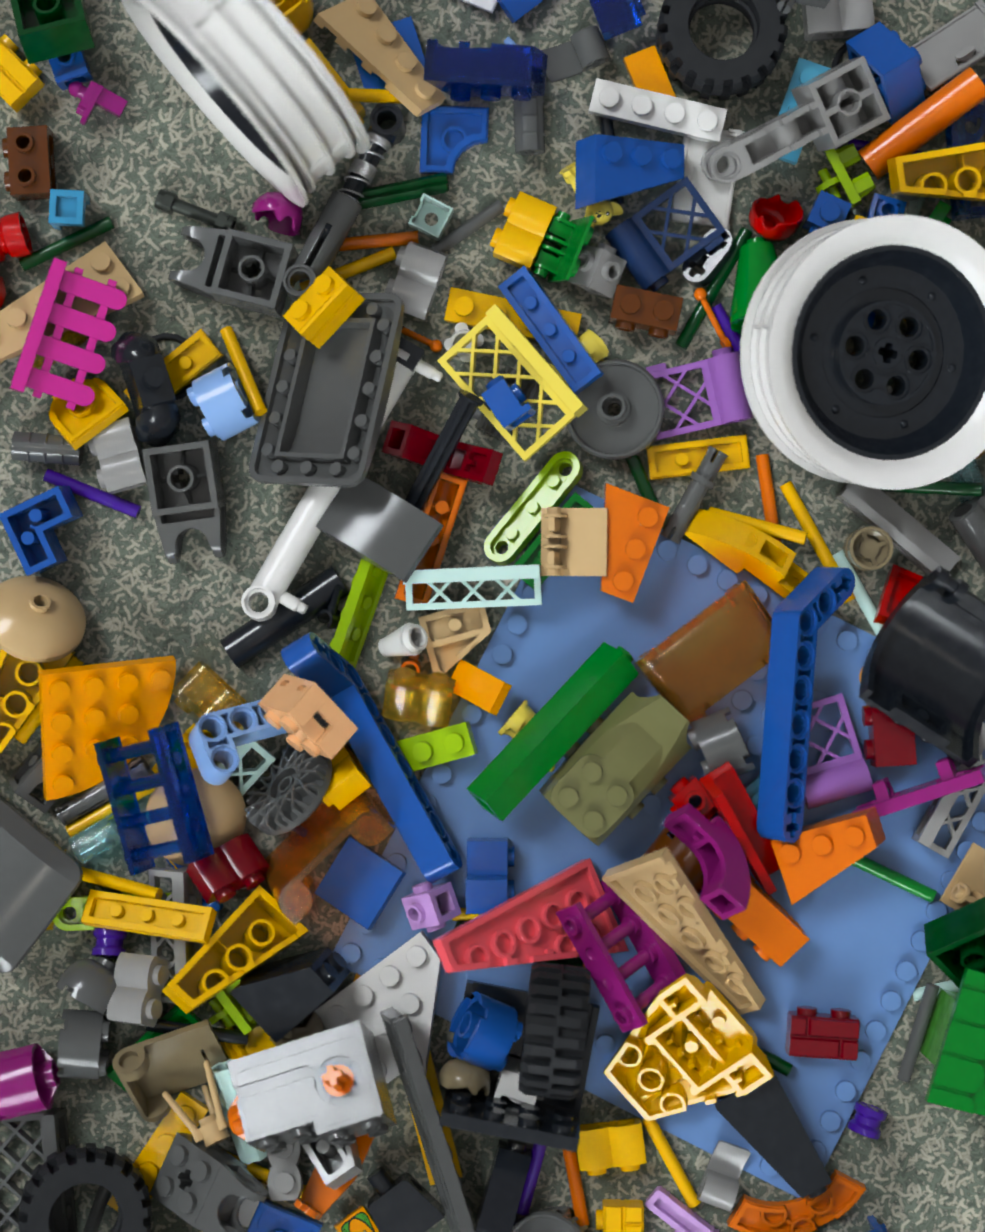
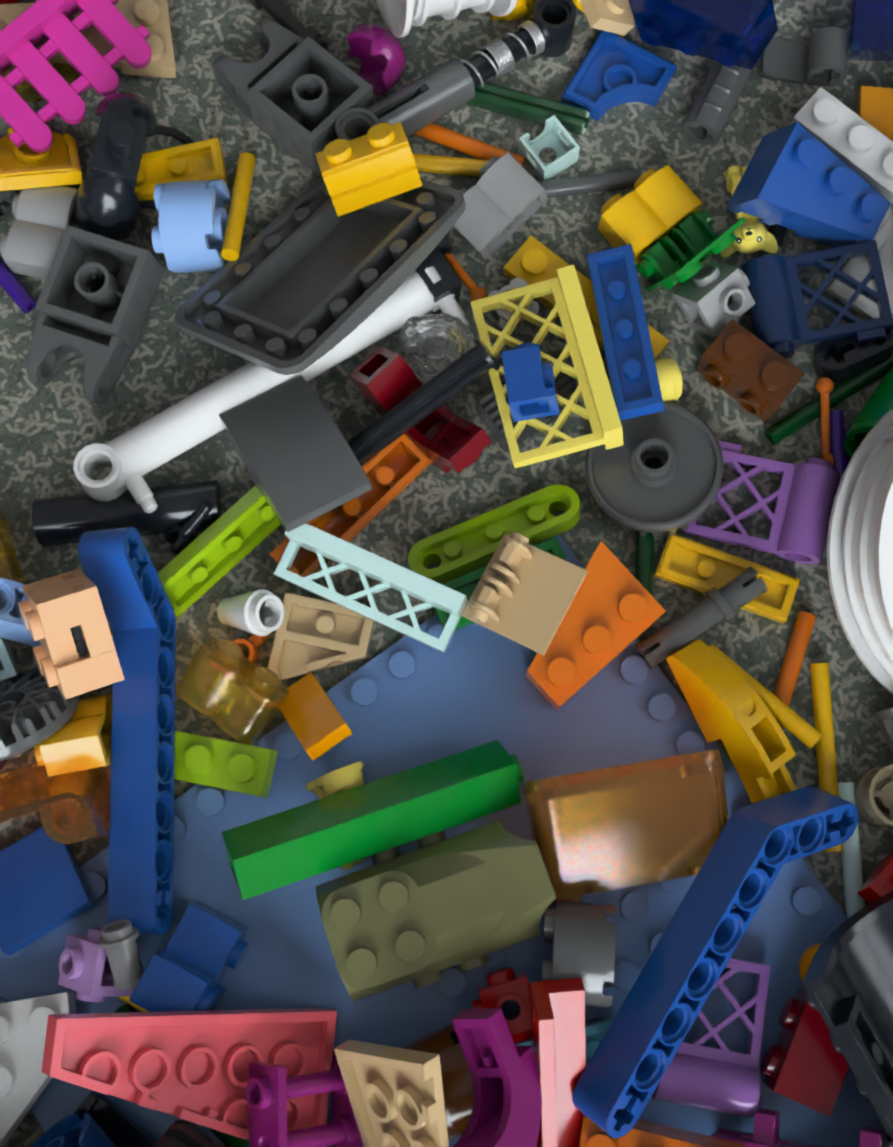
camera: 25 degrees right, 10 degrees down
(430, 402) = (434, 343): none -> clear hair
(444, 889) = (122, 952): none -> light grey pin

